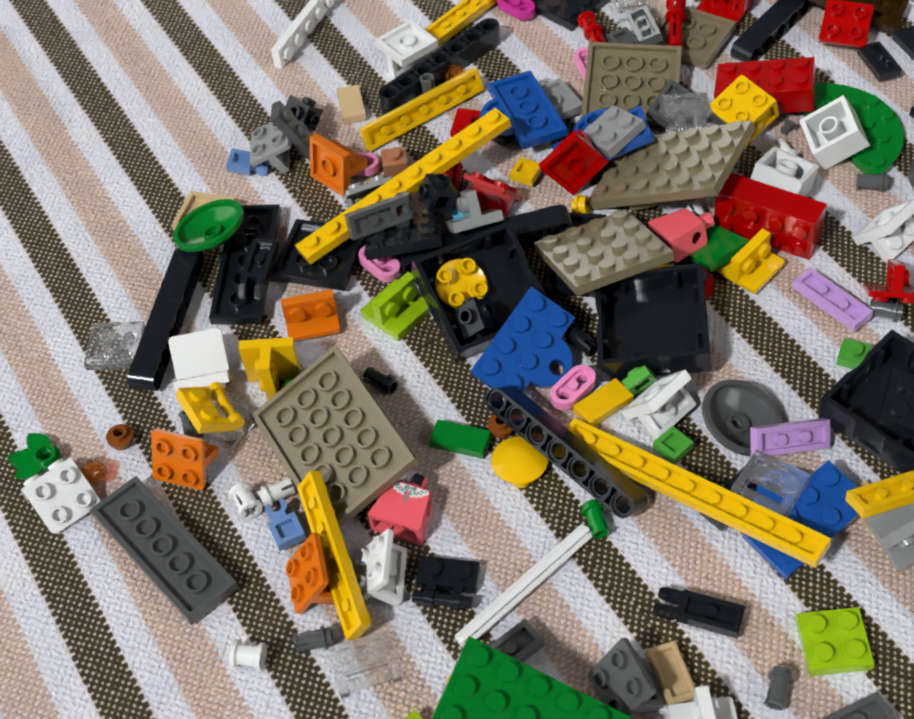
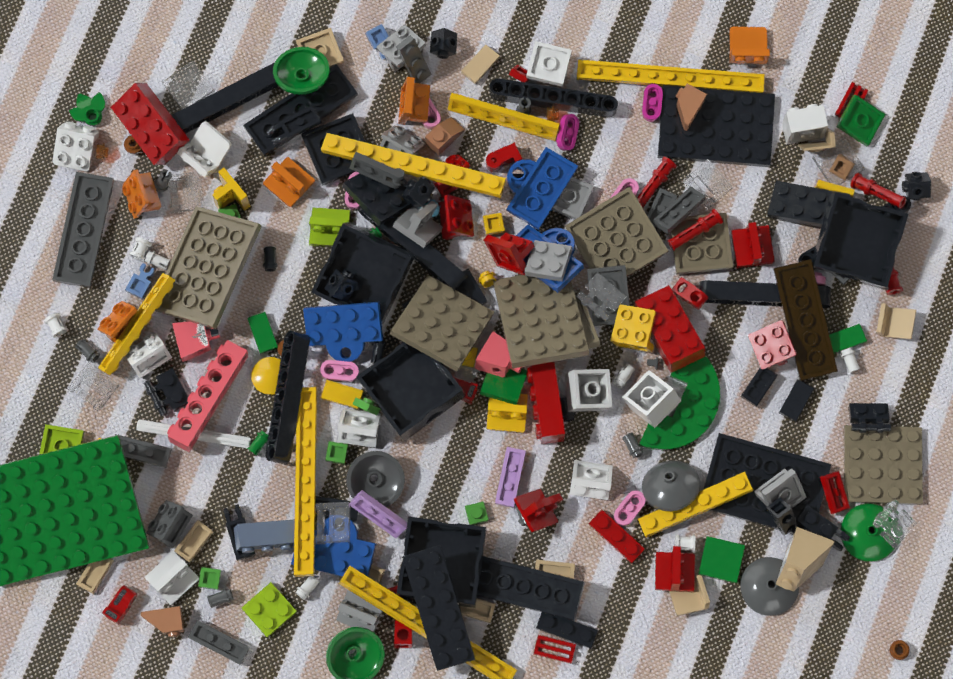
camera: 45 degrees right, 25 degrees up
(116, 396) = (150, 123): none -> red brick
(202, 411) = (171, 181): yellow plate -> none
(390, 75) = (519, 73): none -> red tile
(459, 281) = (358, 257): yellow dish -> none
(485, 71) = (567, 133): none -> dark pink plate
(493, 535) = (187, 438): none -> coral brick
(730, 575) = (264, 535): none -> sand blue brick
(741, 683) = (209, 578): none -> bright green plate
(743, 50) = (690, 293): none -> red leg
(833, 577) = (307, 587): none -> white pin

